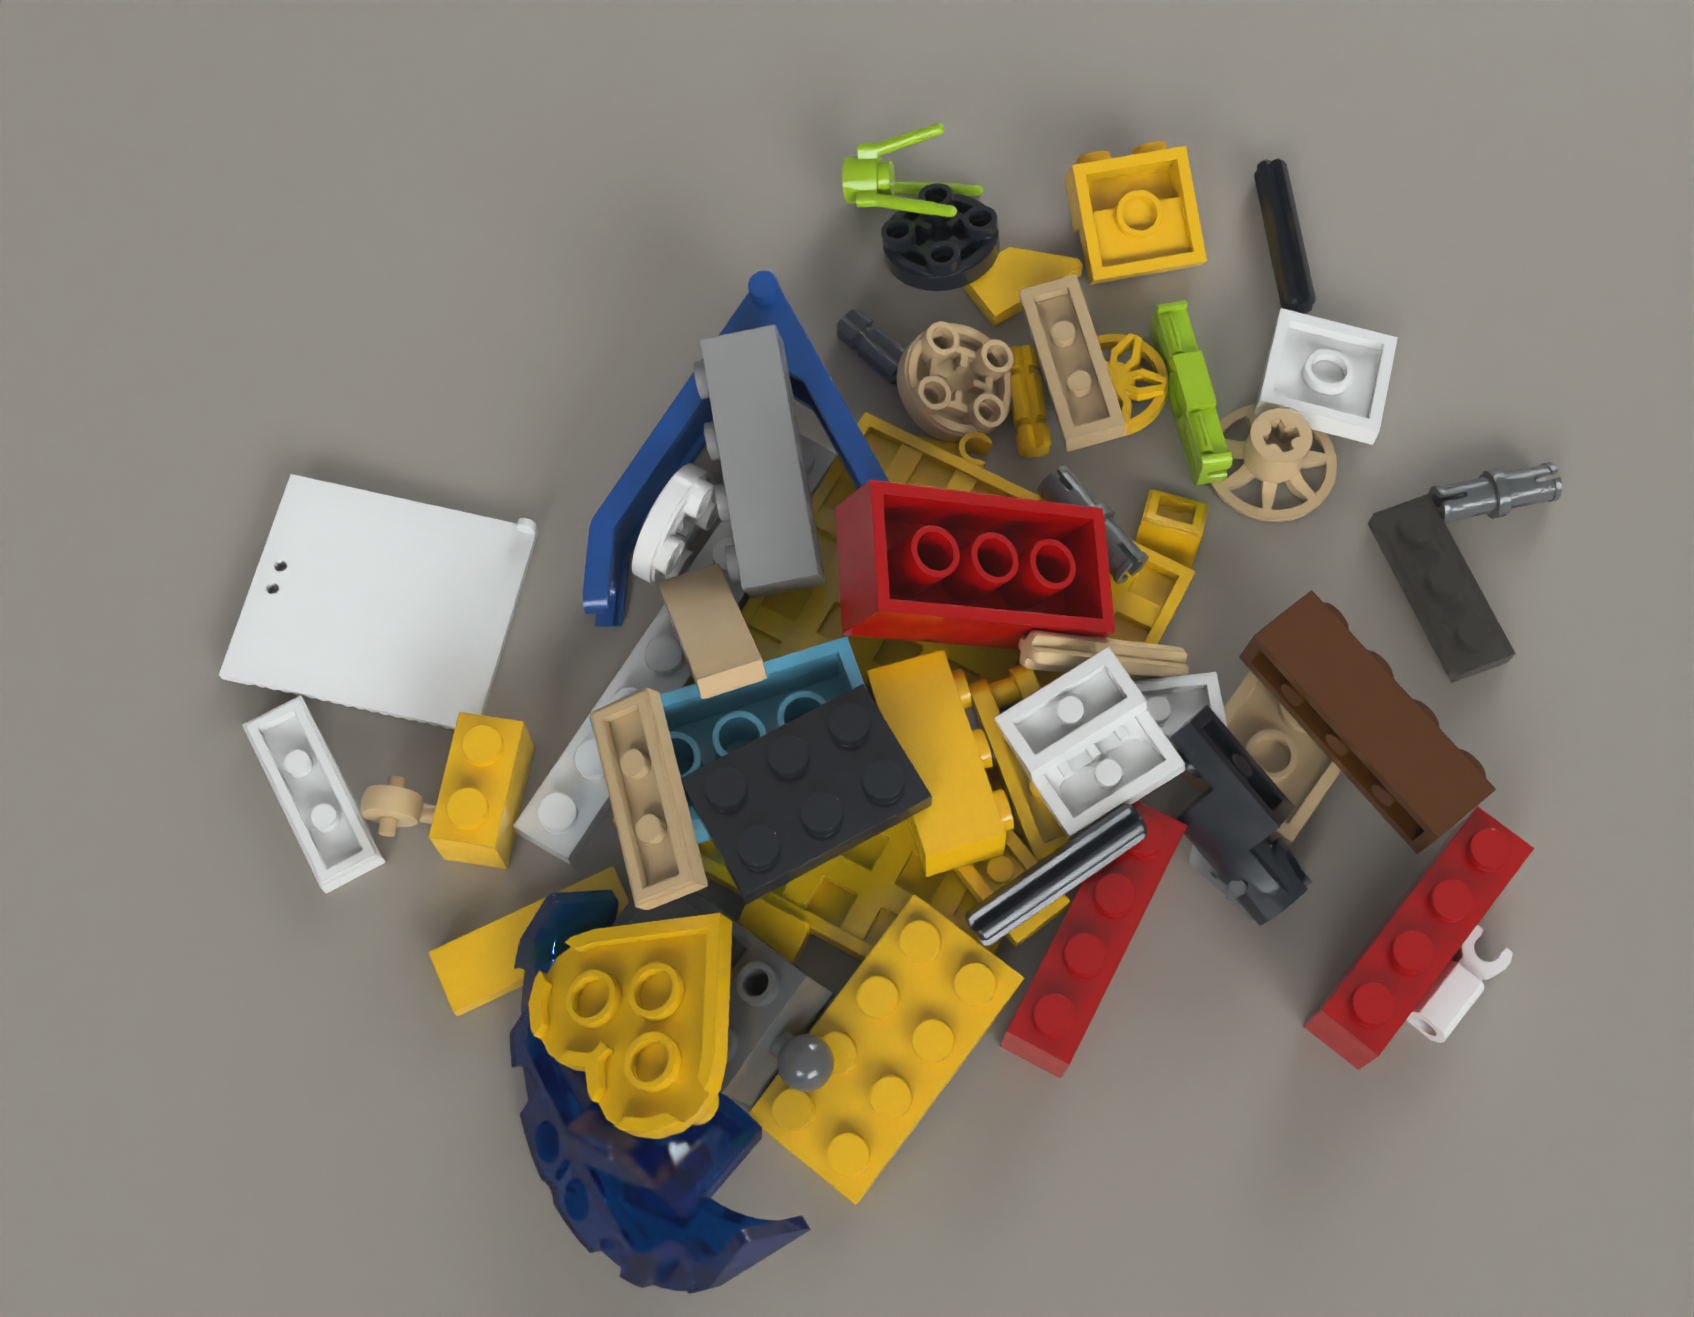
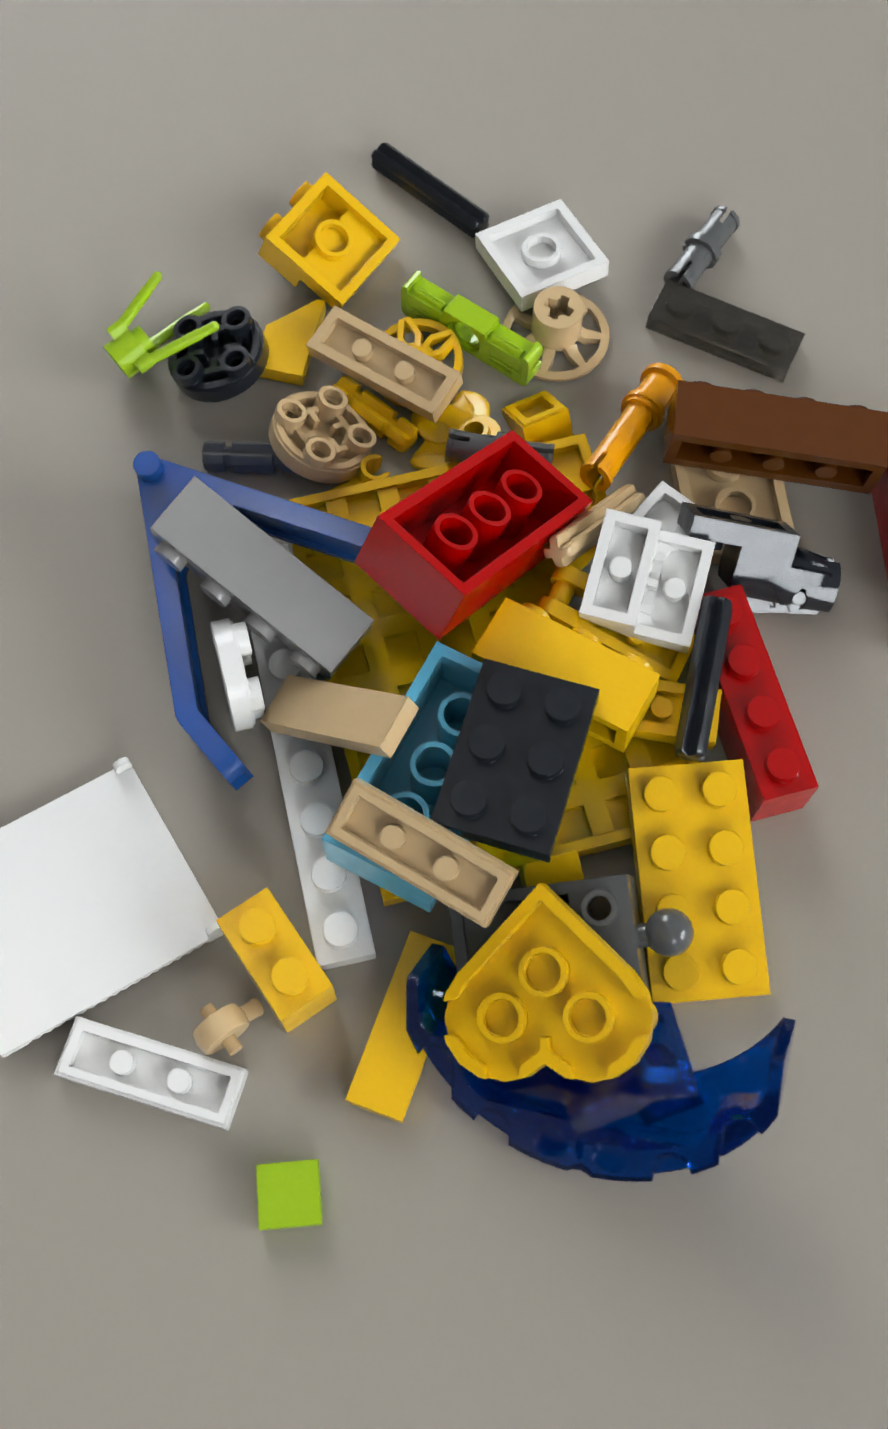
camera: 45 degrees left, 0 degrees up
(317, 986) = (289, 1195): none -> lime tile
(1100, 470) = (466, 413): none -> yellow plate
(1263, 597) = (641, 412): none -> light orange pin

